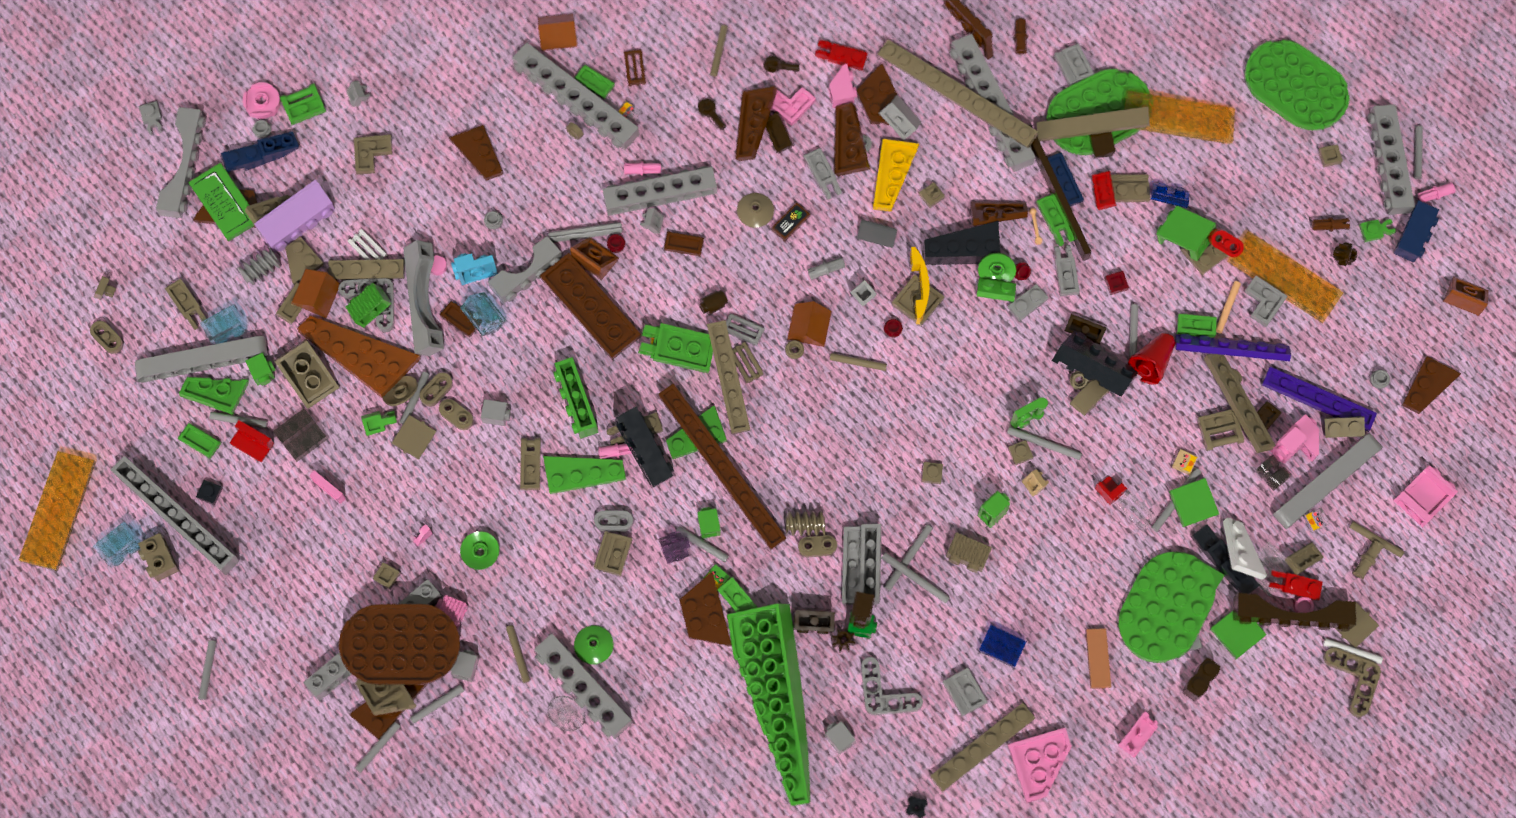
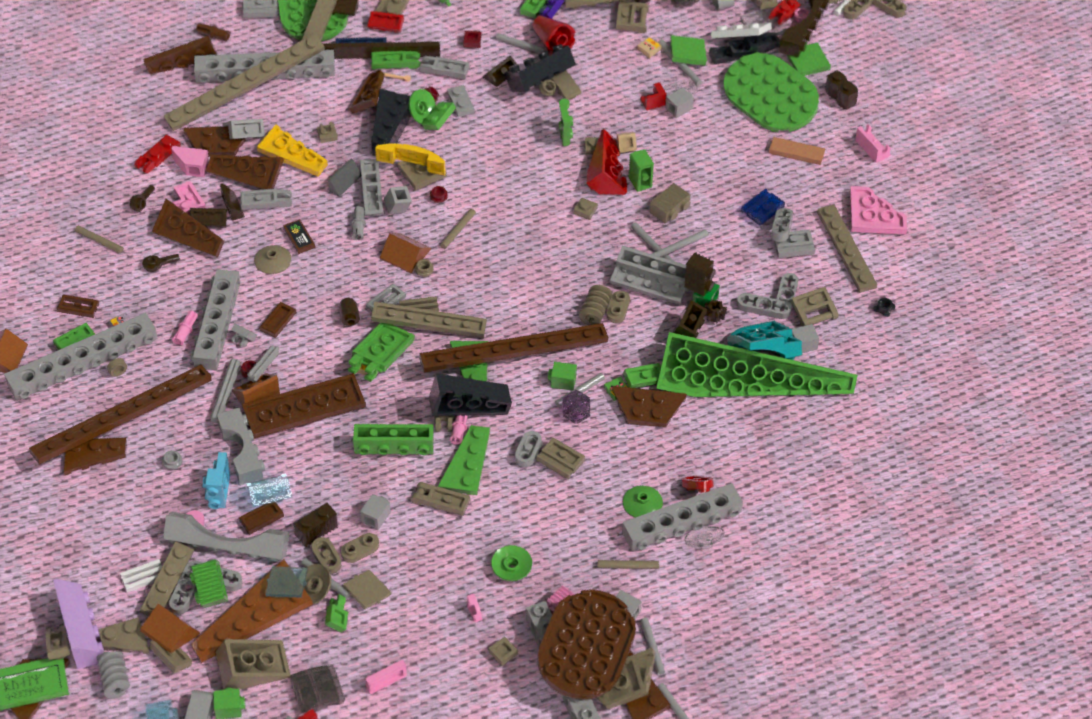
camera: 70 degrees left, 20 degrees down
(366, 148) = (36, 543): dark tan plate -> none
(390, 367) = (286, 582): none -> clear light blue piece
(462, 367) = (315, 524): none -> dark brown brick
(521, 157) = (119, 414): none -> reddish brown plate
(621, 251) = (263, 363): none -> light grey axle
(623, 687) = (698, 483): none -> red plate
(806, 144) = (231, 202): none -> dark brown slope
(817, 698) = (767, 336): none -> teal slope
(875, 263) = (371, 187): none -> light grey slope
(889, 731) = (812, 302): none -> dark tan plate
(973, 677) = (782, 224): none -> light grey beam
(986, 475) = (605, 169): none -> red wedge
(1044, 443) = (592, 128): light grey bar -> none
(1113, 518) = (679, 102): none -> light grey brick

